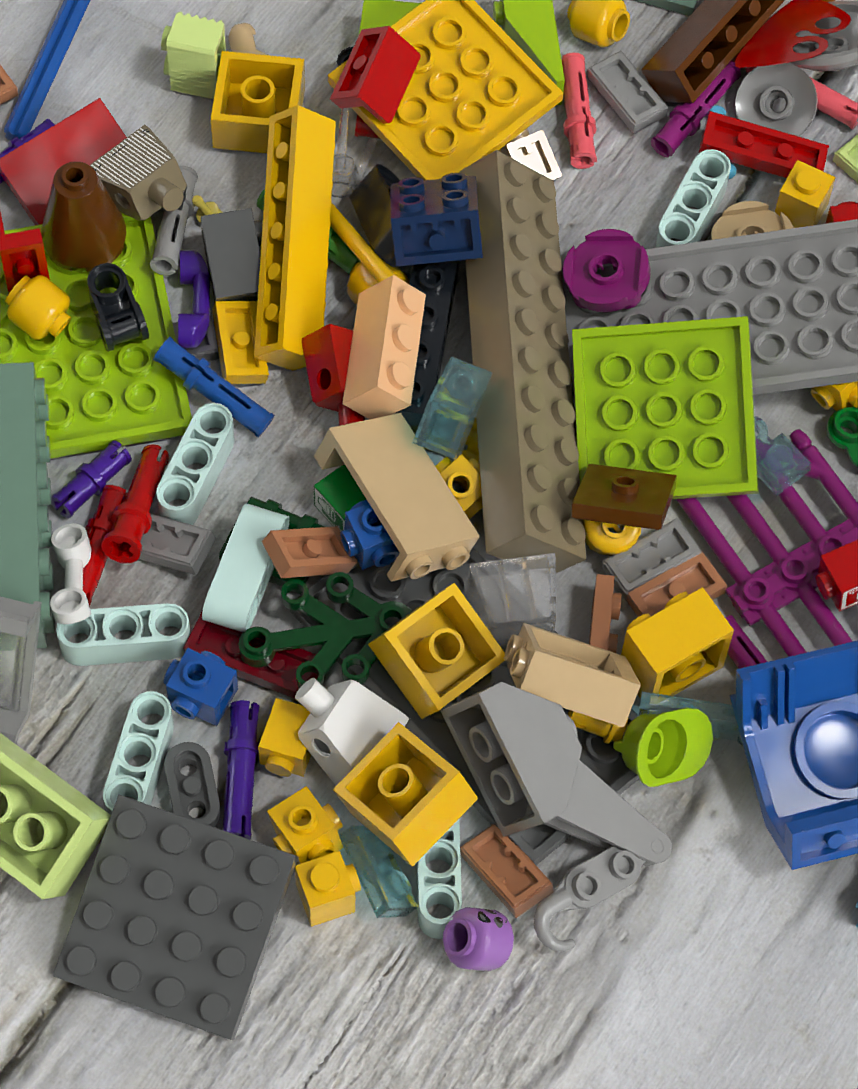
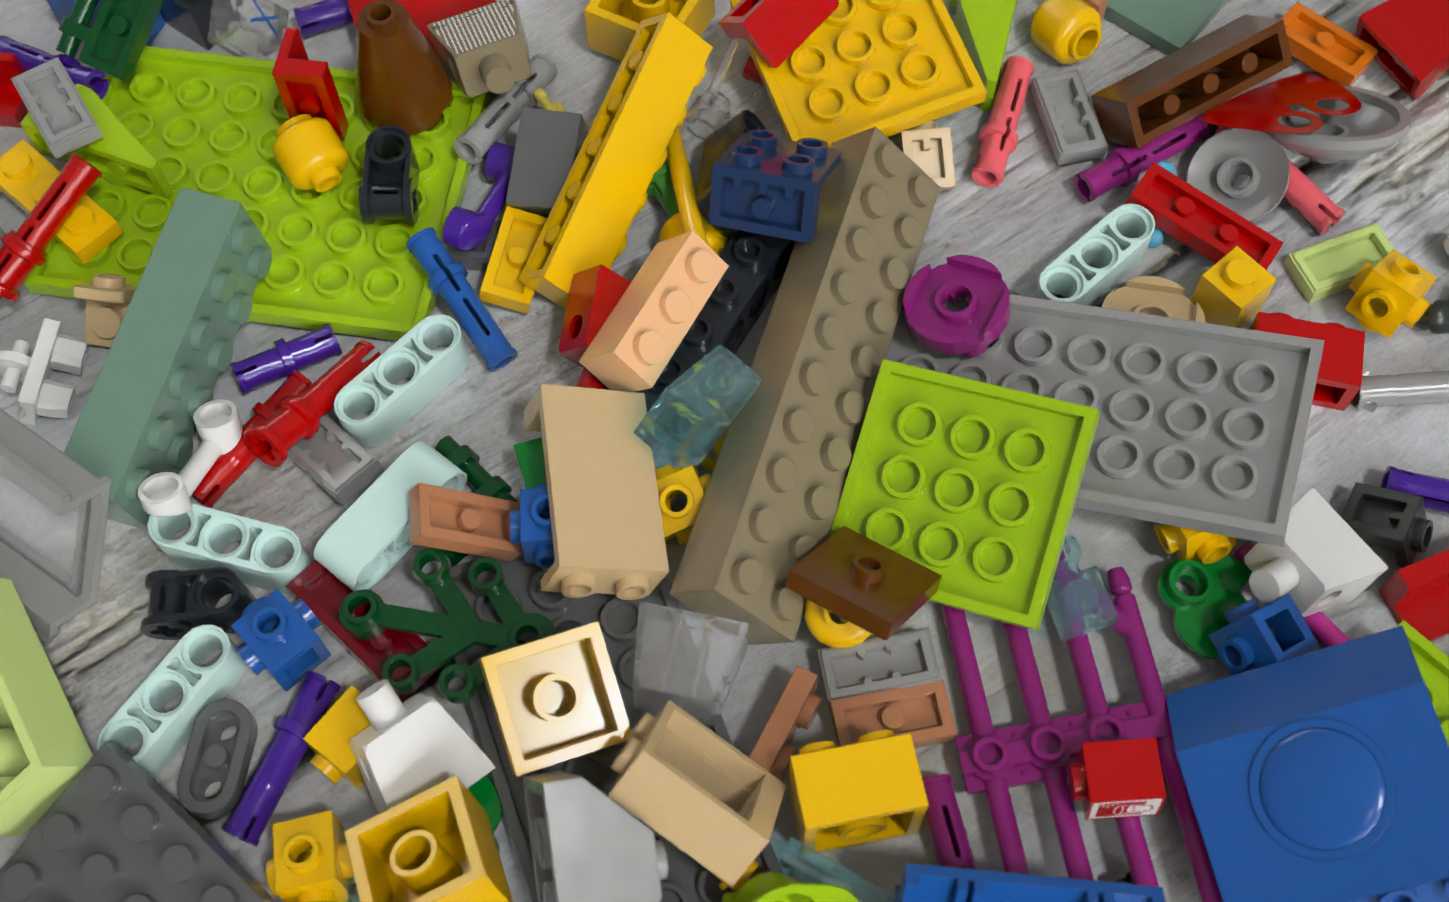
camera: 25 degrees right, 0 degrees up
(113, 683) = (190, 600): none -> black piece

